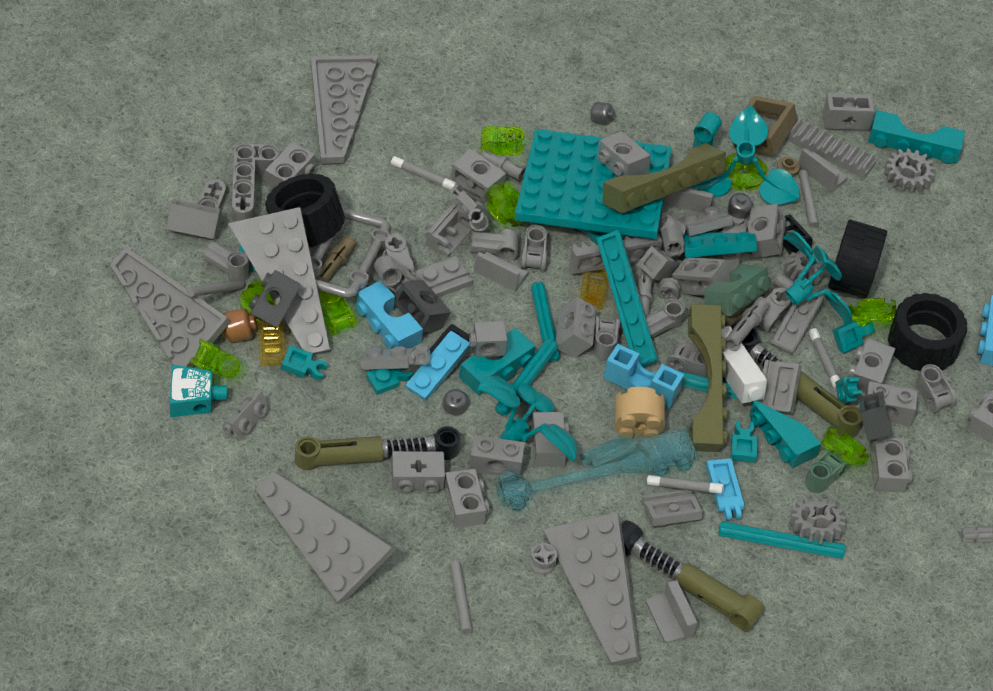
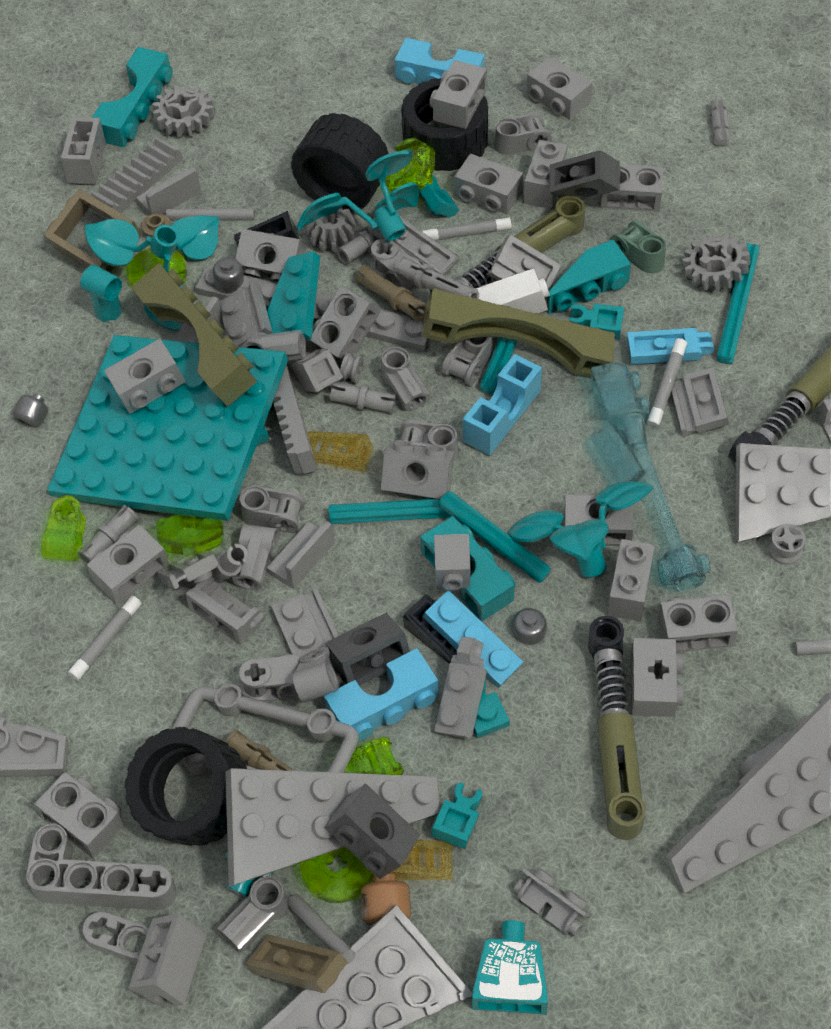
camera: 75 degrees left, 5 degrees up
(189, 275) = (296, 963): none -> dark tan plate
(211, 358) = (462, 933): clear neon green piece -> none
(627, 297) = (377, 404): teal tile -> none
(639, 412) = (566, 413): tan brick -> none
(745, 286) = (395, 293): sand green arch -> none
(847, 389) = (530, 207): teal plate -> none
(850, 448) = (609, 222): clear neon green plate -> none
(937, 321) = (459, 94): none -> light grey brick

